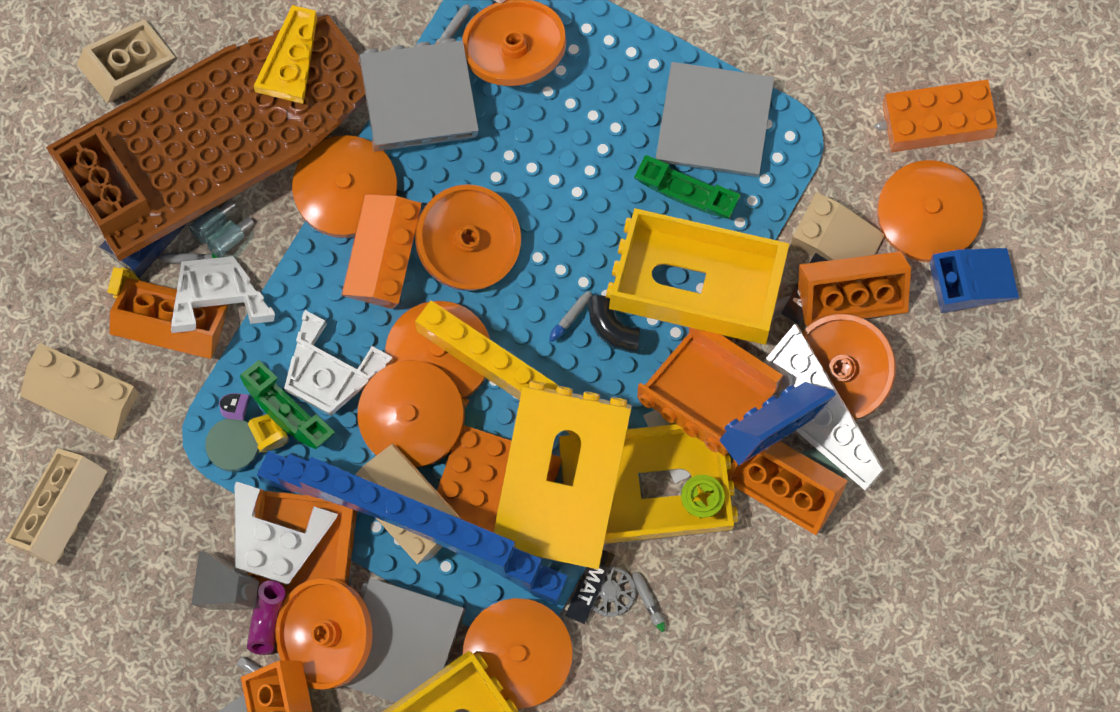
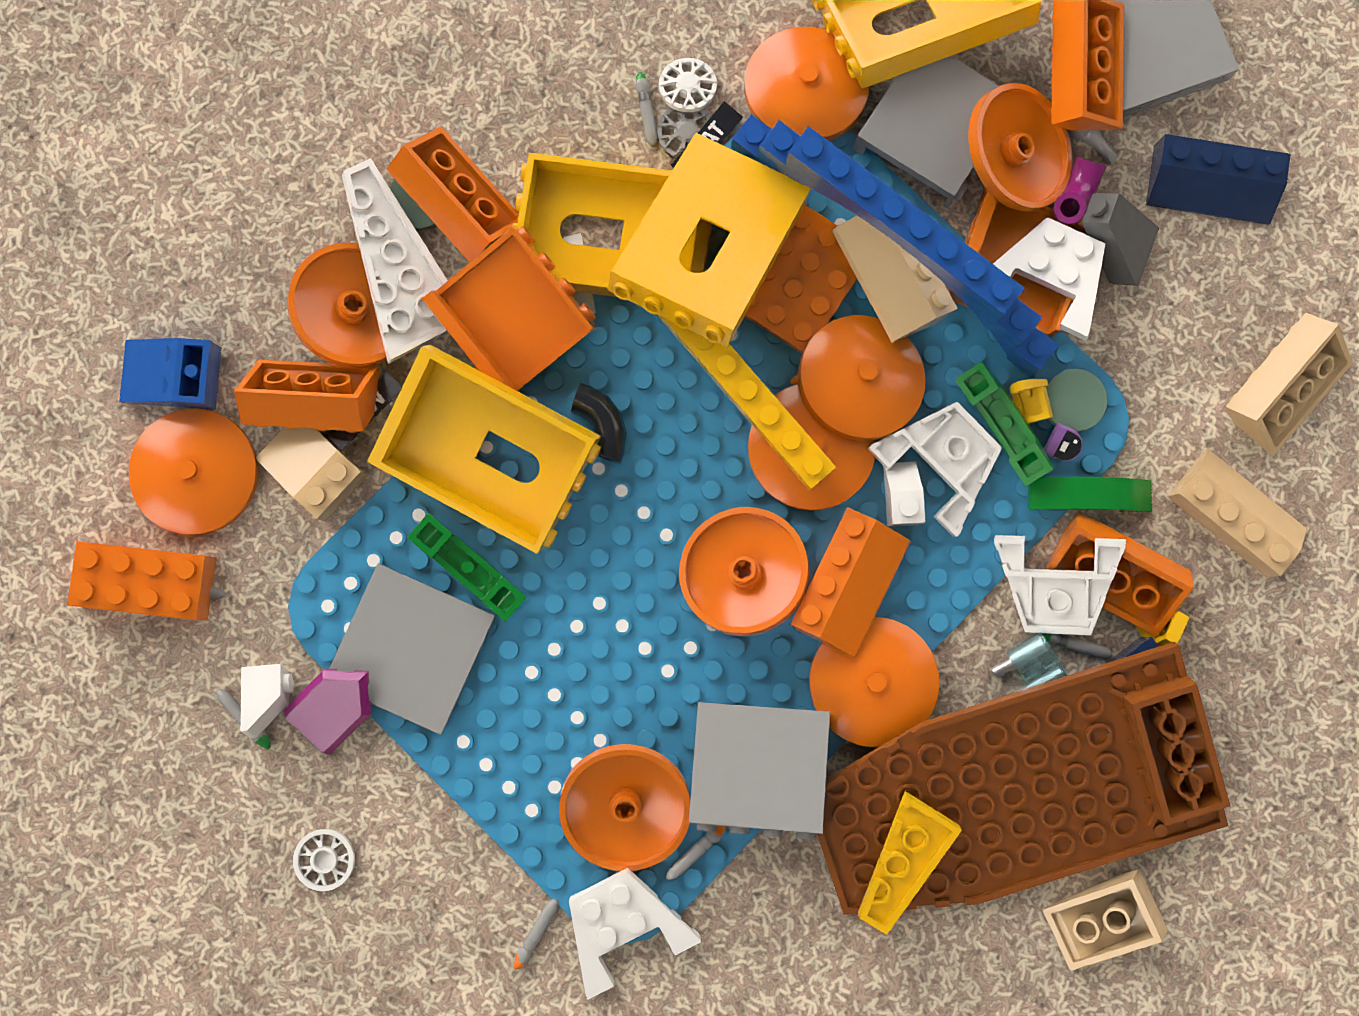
camera: 170 degrees left, 10 degrees up
(149, 663) = (1217, 179): none -> dark blue slope
(200, 373) = (1090, 494): none -> green slope
(354, 330) = (904, 495): none -> white slope
(559, 330) = (647, 450): light grey piece -> none
(619, 630) = (687, 85): none -> white wheel
(706, 484) = (542, 182): lime gear -> none
(762, 60) = (331, 707): none -> tile
(774, 420) = (444, 236): blue slope -> none
(814, 30) = (234, 709): none -> light grey piece
(817, 55) = (263, 696): none -> white slope

